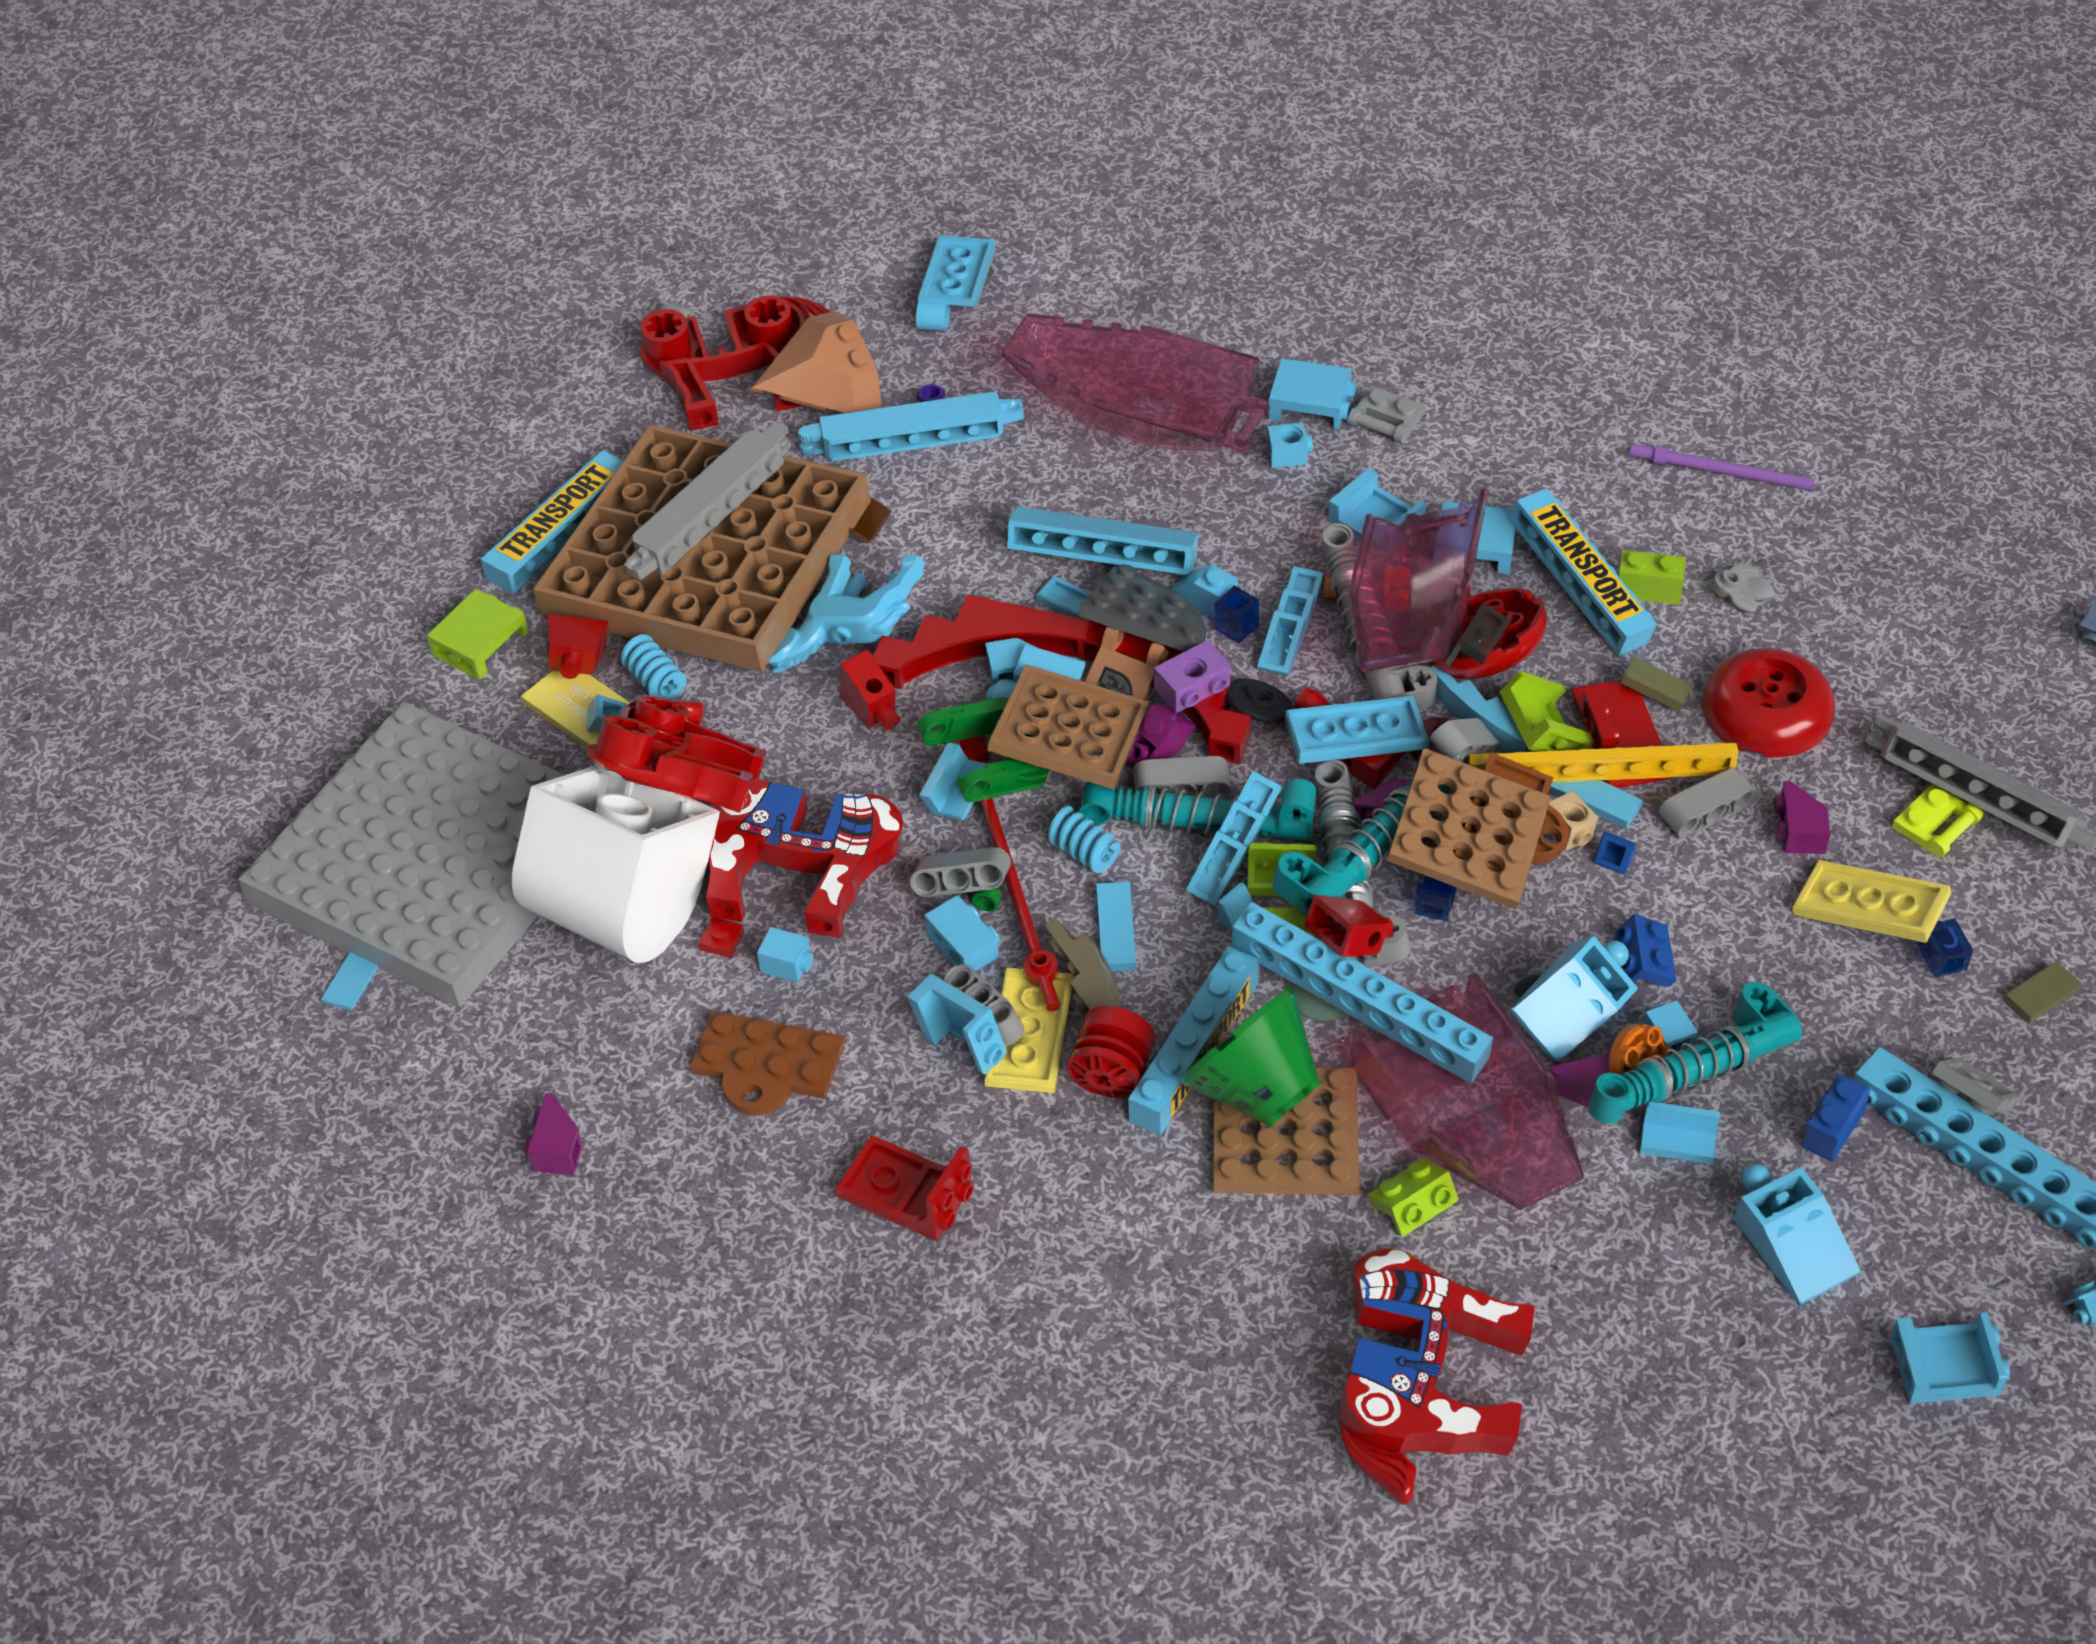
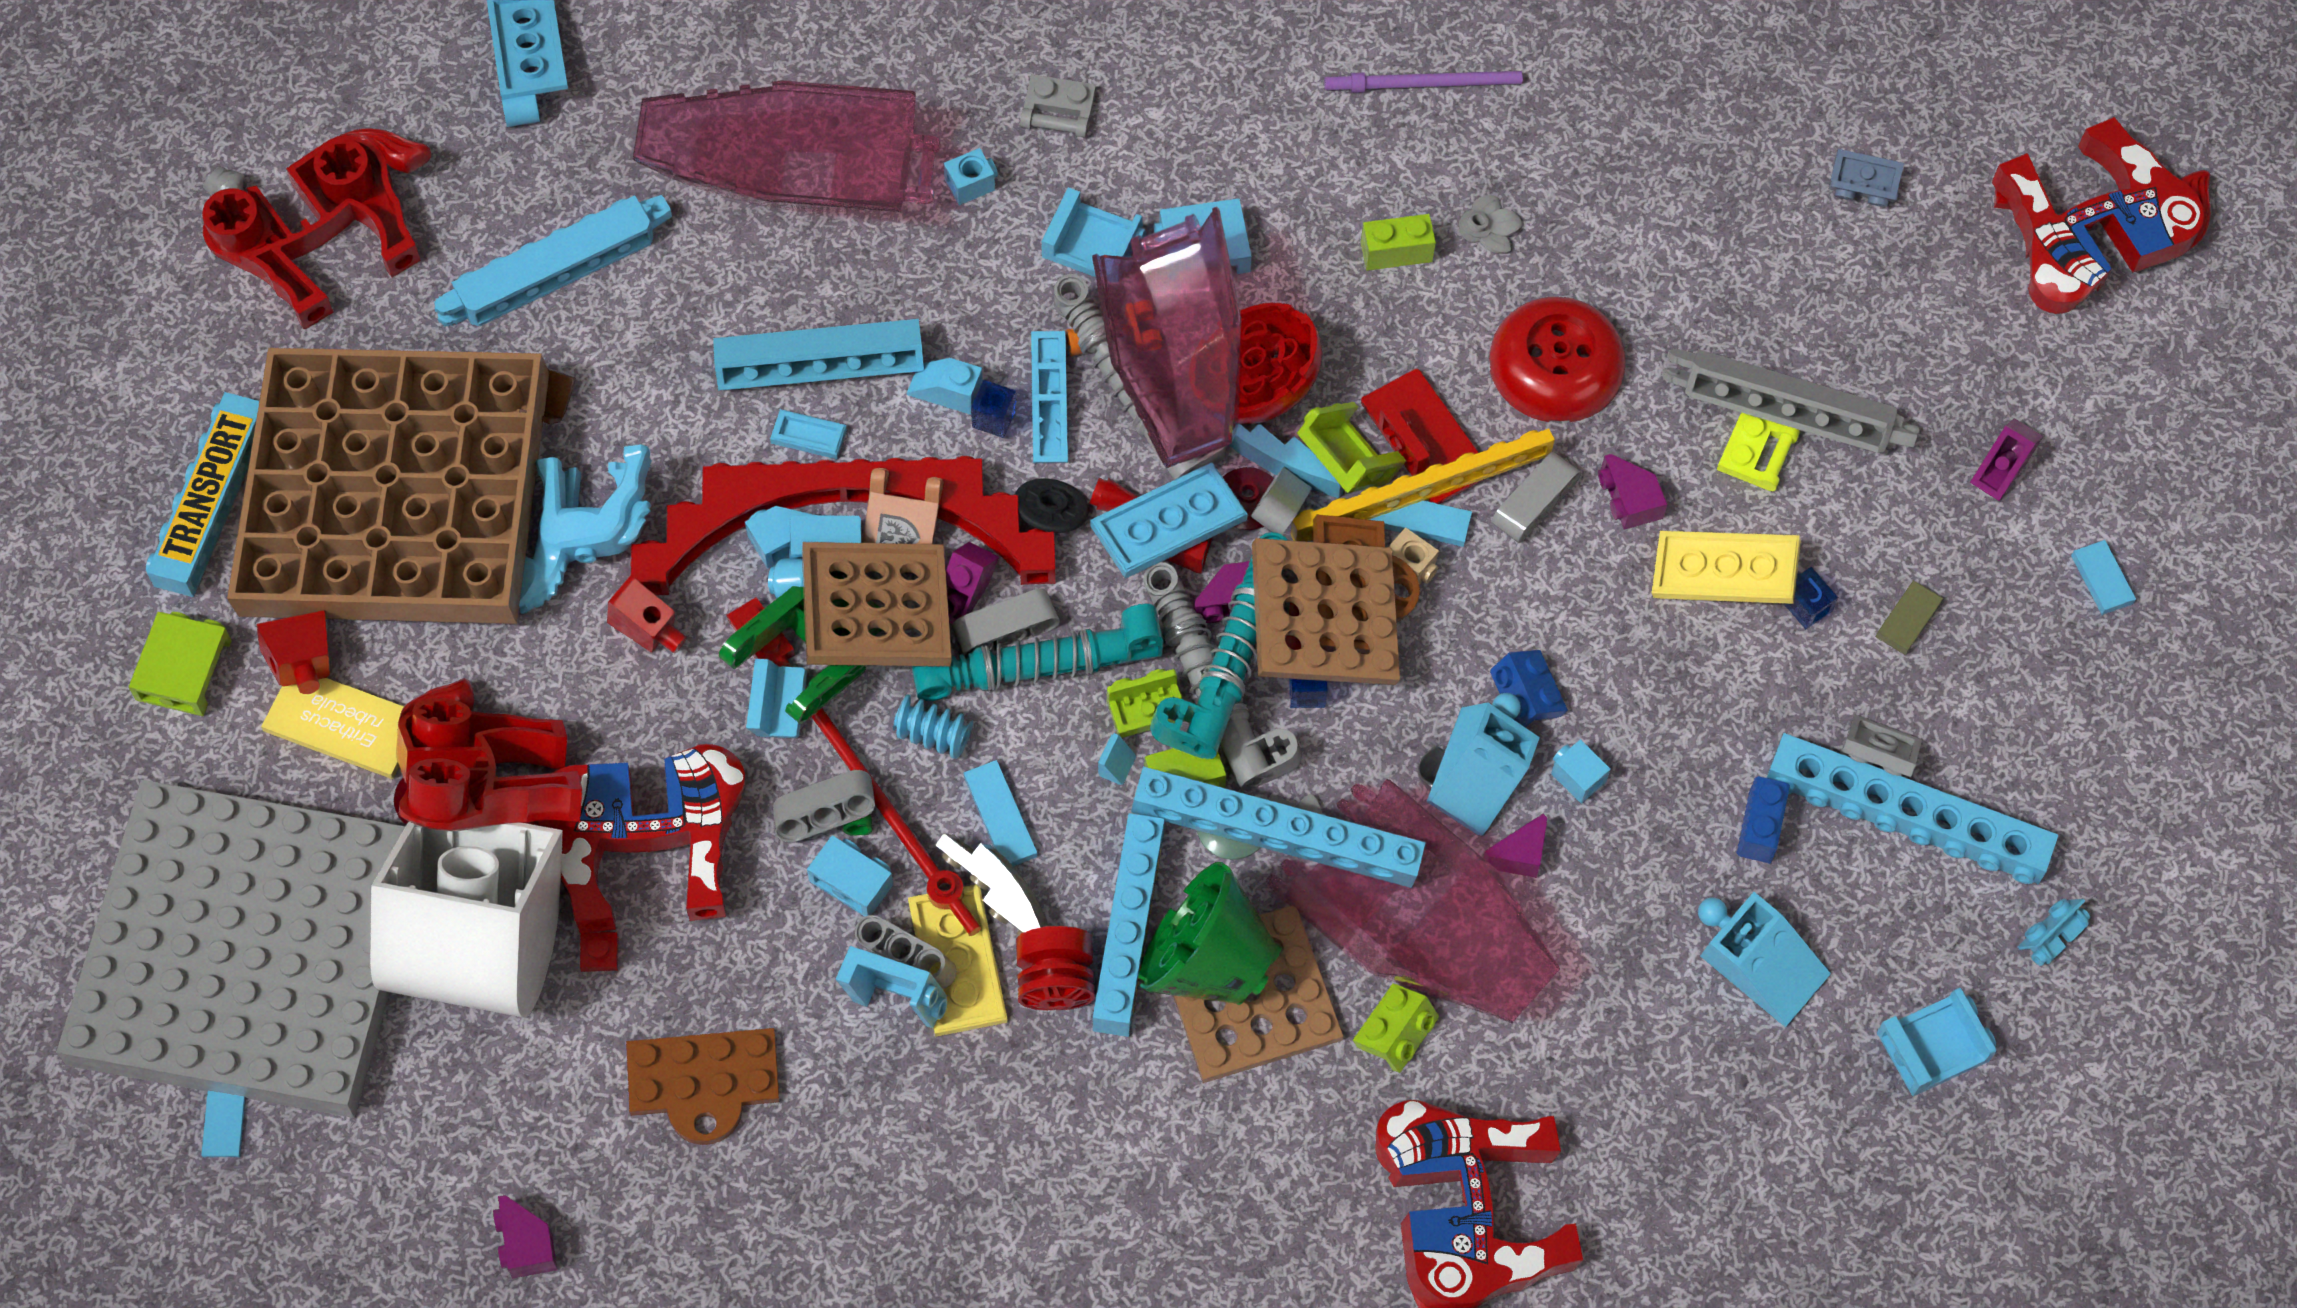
camera: 25 degrees left, 15 degrees up
(599, 708) = (367, 725): medium azure slope -> none
(652, 667) = (392, 654): medium azure piece -> none
(707, 500) = (382, 439): light grey hinge -> none
(785, 955) = (677, 955): medium azure brick -> none
(825, 367) = (433, 217): nougat wedge -> none
(908, 1186) = (904, 1178): red bracket -> none
(930, 392) = (557, 209): dark purple plate -> none
(1144, 609) = (900, 434): dark grey plate -> none
(1192, 676) = (984, 488): medium lavender brick -> none
(1234, 837) = (1089, 683): medium azure slope -> none
(1312, 390) = (971, 99): medium azure panel -> none
(1348, 925) = (1246, 763): red torso -> none
(1480, 635) = (1263, 383): clear smoke panel -> none
(1583, 572) = (1330, 258): medium azure brick -> none
(1615, 852) = (1464, 582): blue slope -> none
(1634, 1045) = (1565, 816): orange tile -> none
(1656, 684) = (1442, 370): olive tile -> none
(1679, 1132) = (1623, 881): medium azure panel -> none
(1762, 1028) = (1646, 779): teal piece -> none

